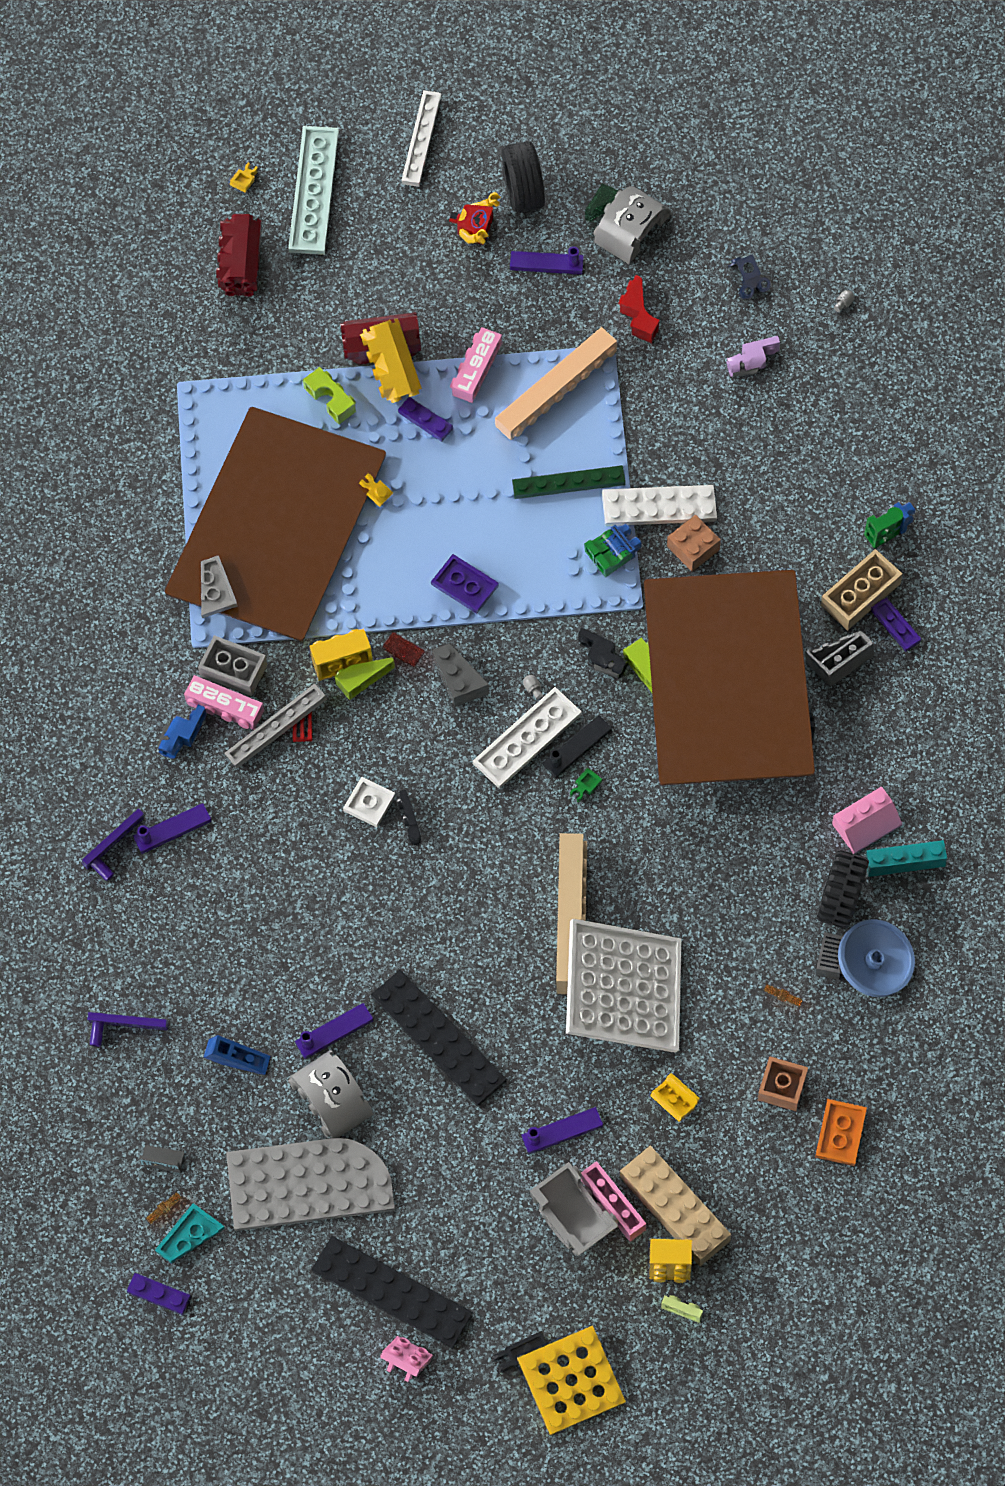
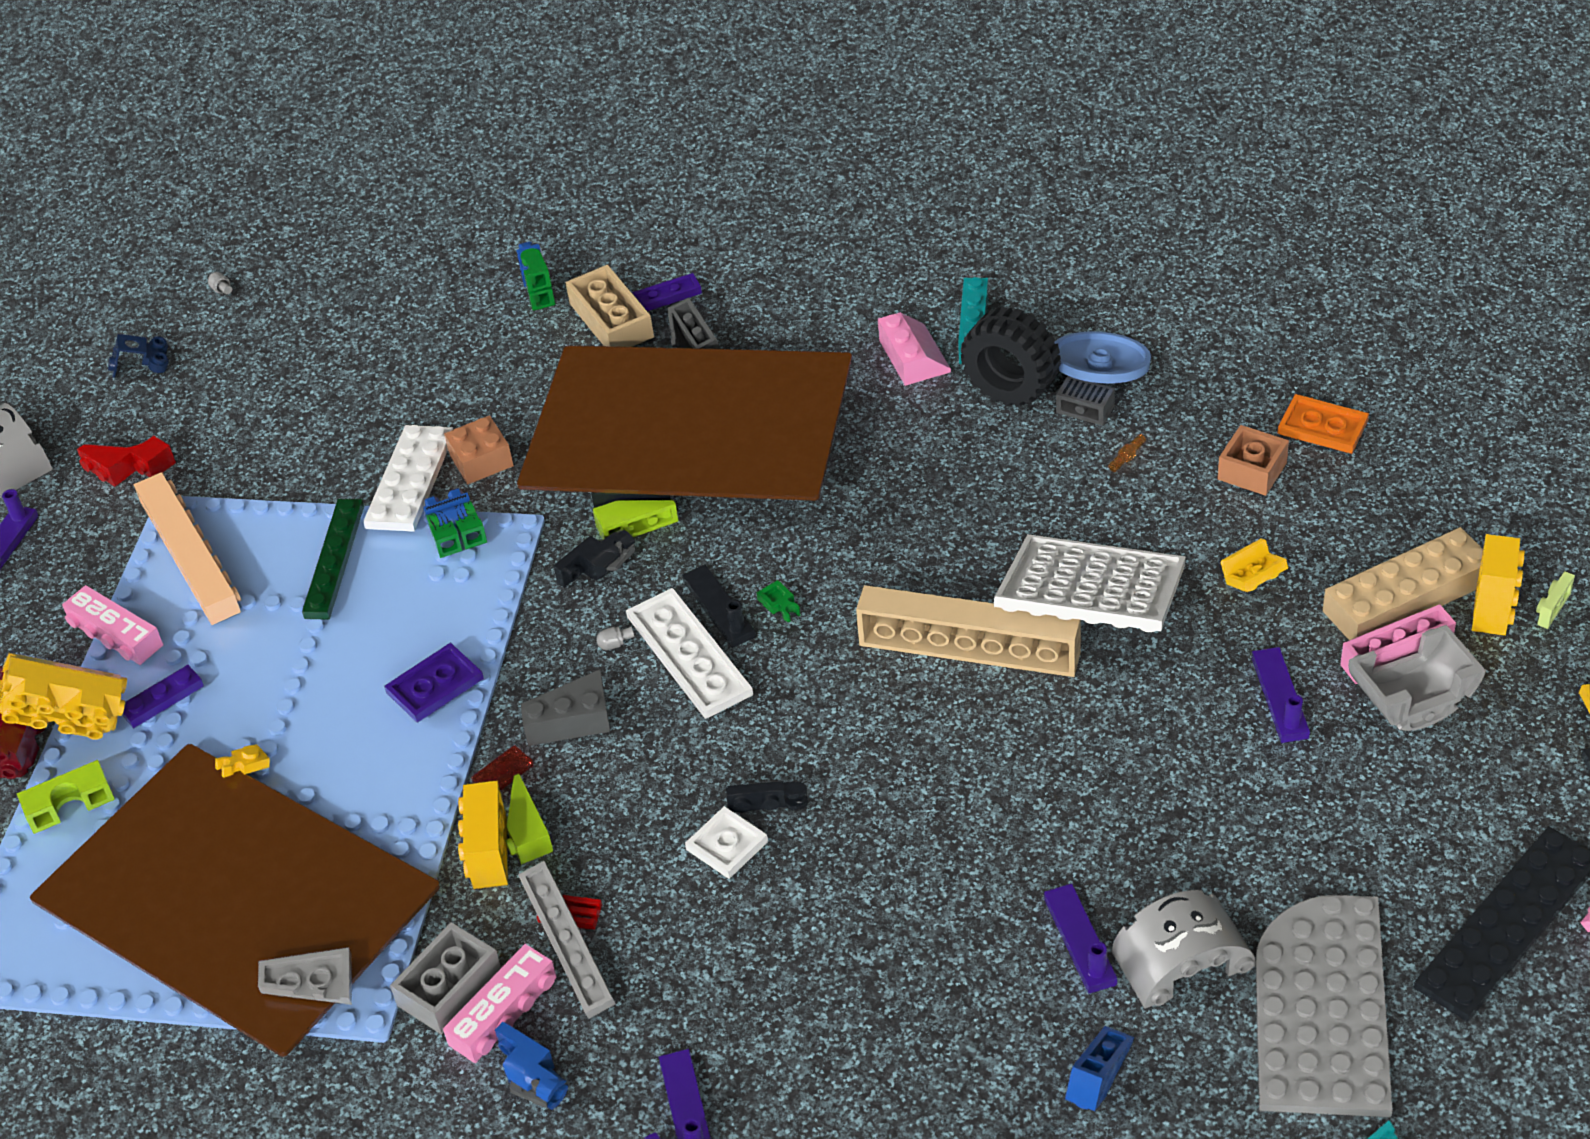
camera: 75 degrees left, 20 degrees down
(438, 1038) = (1113, 814): black plate -> none
(752, 357) = (251, 367): lavender plate -> none

